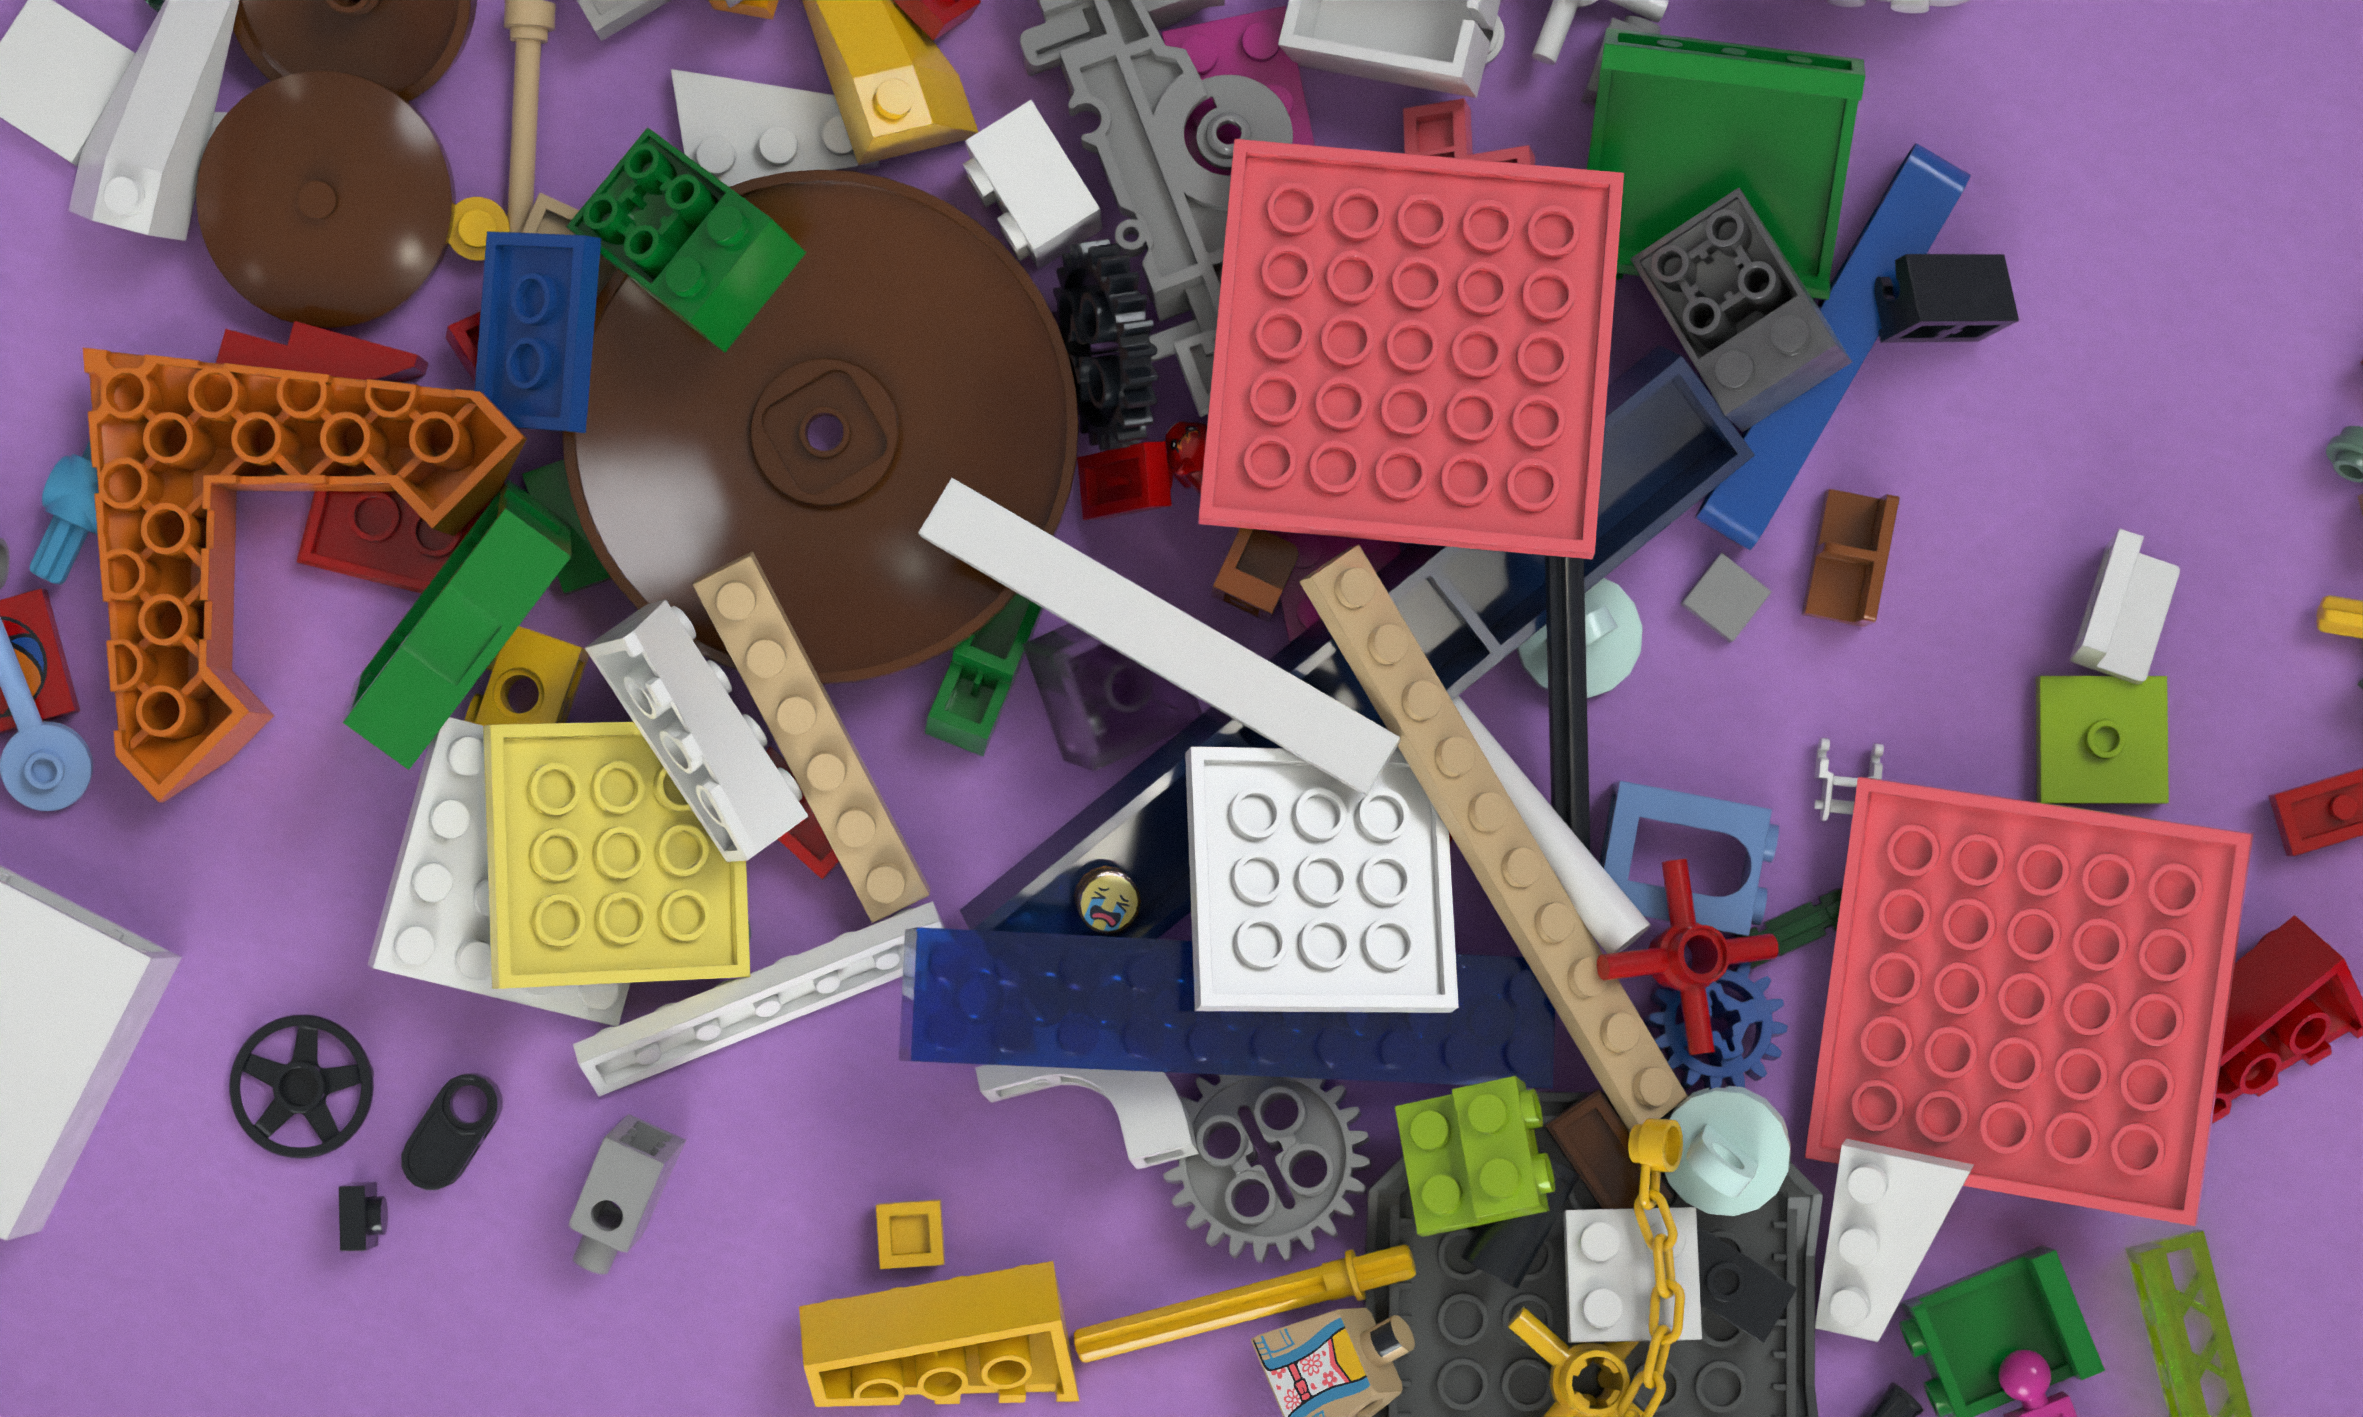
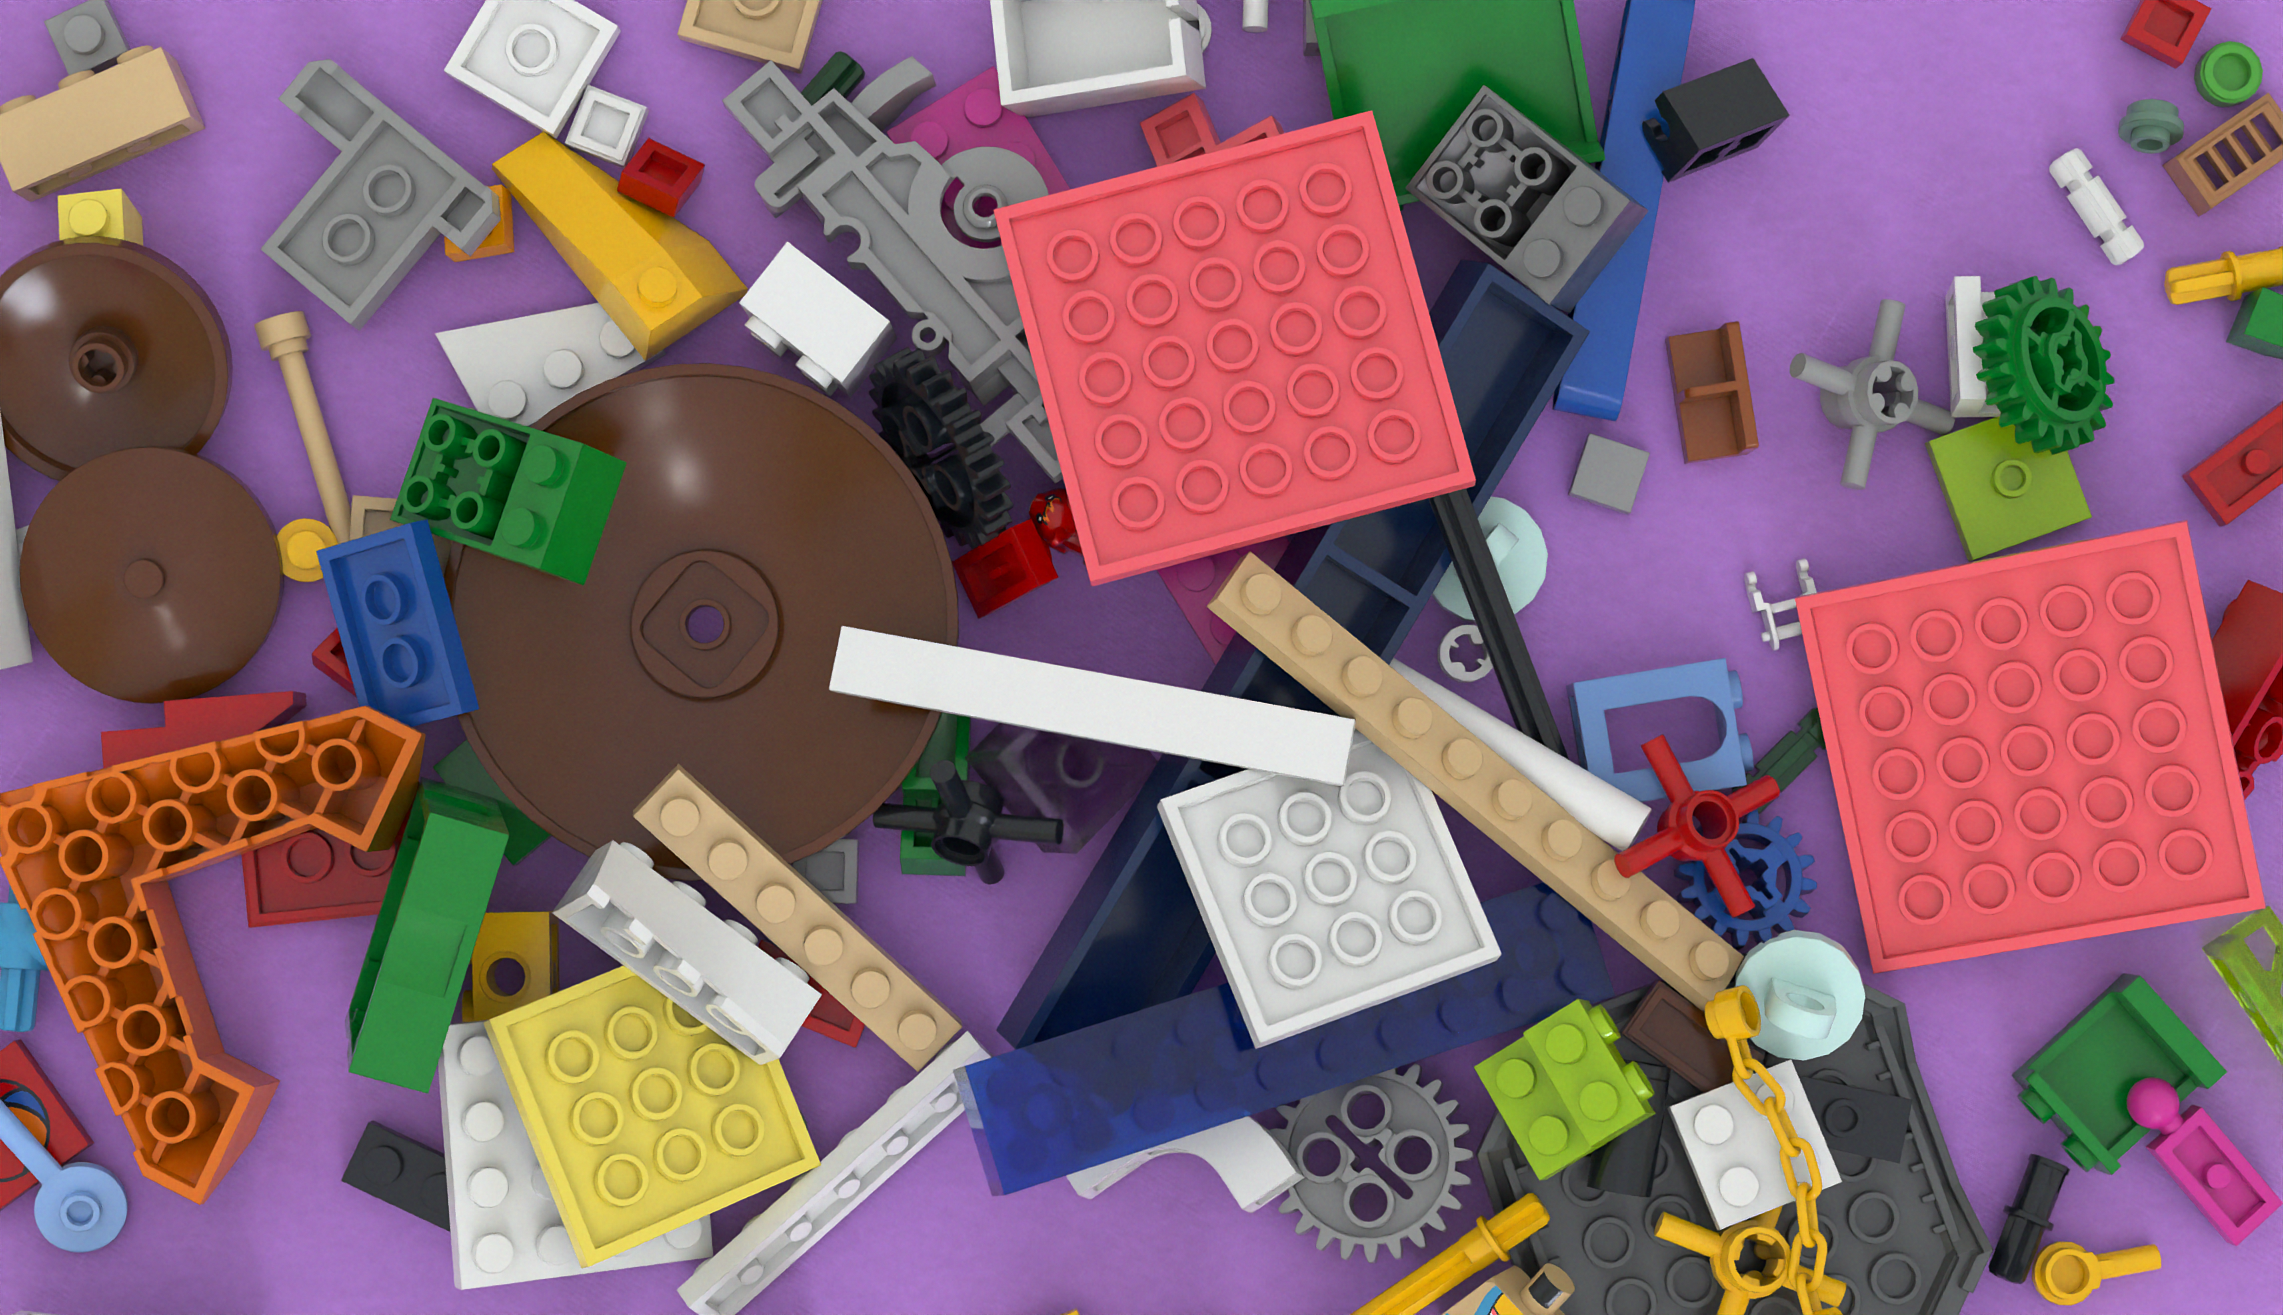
camera: 25 degrees left, 0 degrees up
(355, 843) = (401, 1173): none -> black plate
(862, 706) = (834, 871): none -> light grey plate
(1003, 705) = (968, 823): none -> black bar
(1107, 899) = (1131, 969): tile -> none
(1255, 572) = (1161, 610): dark orange panel -> none
(1514, 730) = (1456, 670): none -> white bush
(1880, 1231) = (1970, 1017): white wing -> none
(2000, 611) = (1871, 394): none -> light grey bar
(2173, 642) = (2043, 365): none -> green gear
(2279, 512) = (2096, 206): none -> white axle

